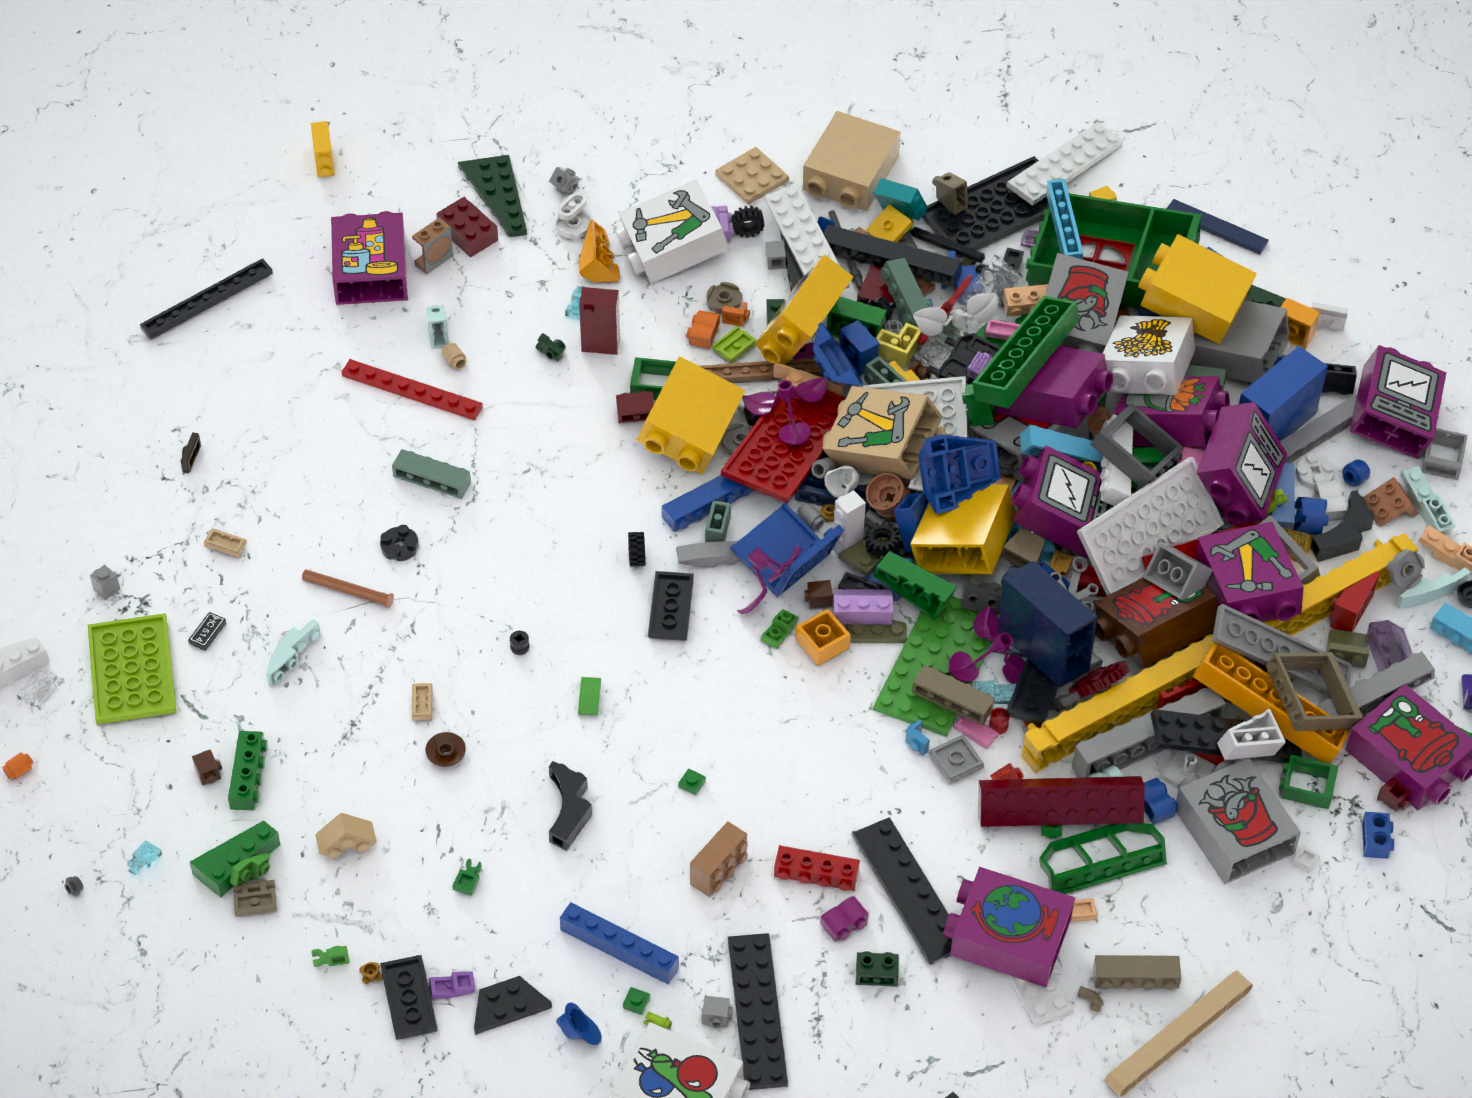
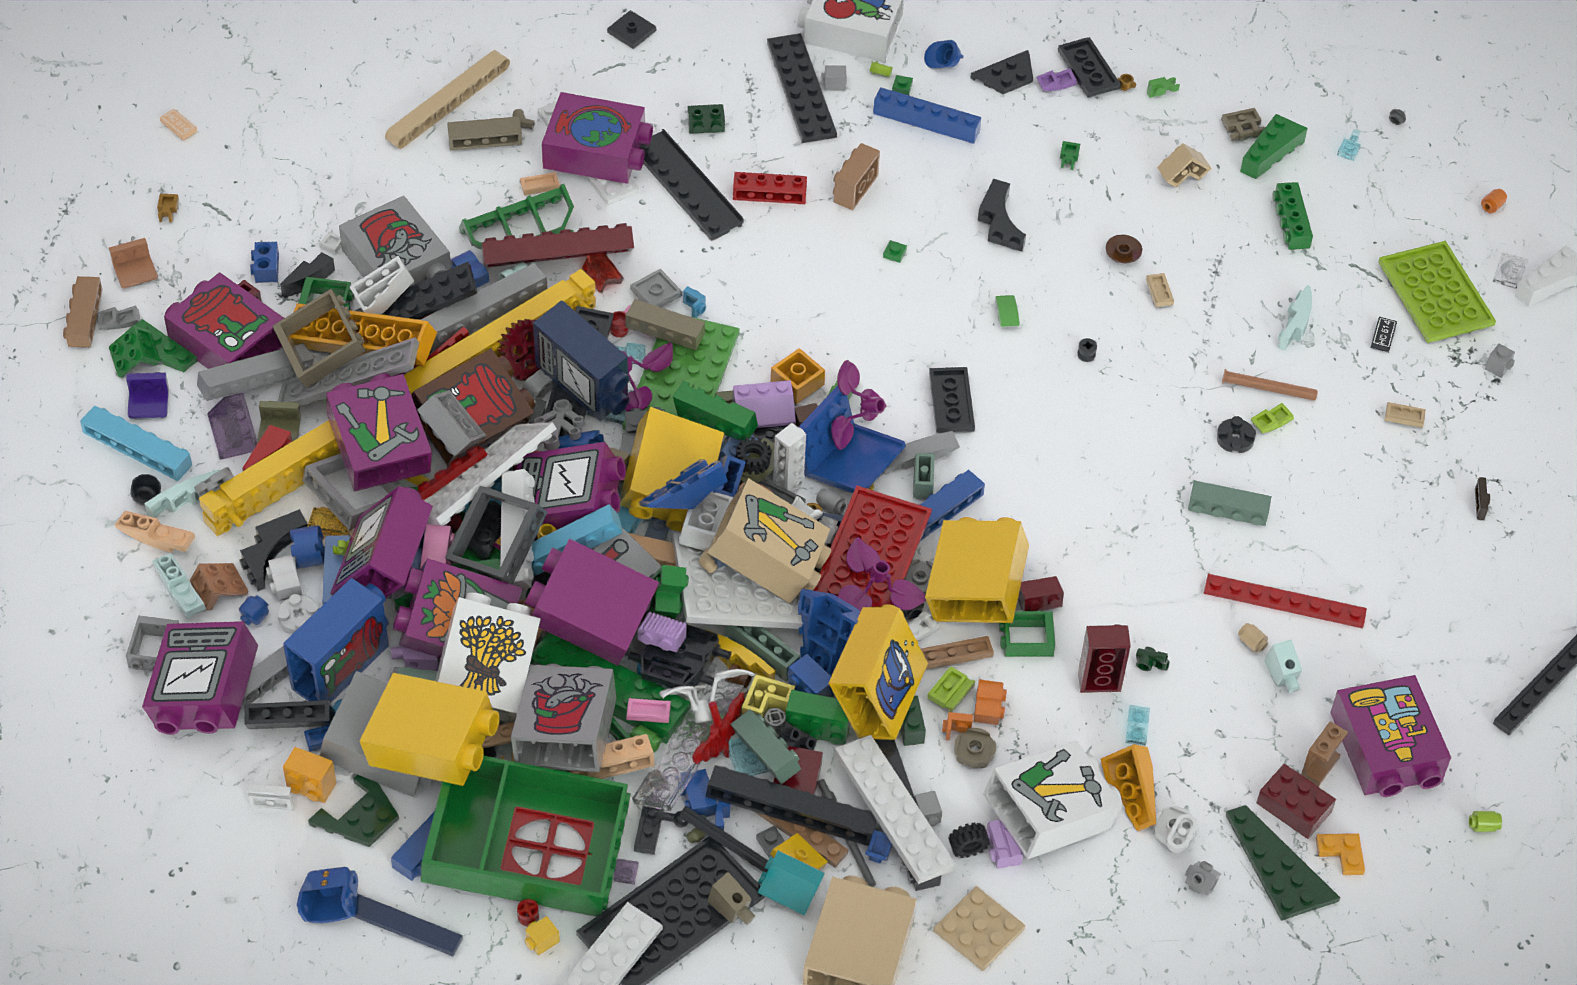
camera: 170 degrees right, 0 degrees up
(207, 767) = (1329, 214): reddish brown brick -> none
(251, 867) = (1252, 135): bright green slope -> none
(316, 199) = (1485, 821): none -> lime brick
(322, 149) = (1505, 878): yellow brick -> none
(360, 555) = (1272, 419): none -> lime slope
(436, 194) = (1343, 845): none -> light orange plate
(636, 549) = (998, 439): black tyre -> none
(844, 918) = (739, 152): magenta brick -> none
(1025, 351) = (622, 601): green brick -> none
(1063, 219) = (588, 820): medium azure brick -> none
(1273, 241) = (328, 895): none -> blue piece
(1329, 814) = (320, 267): none -> black slope

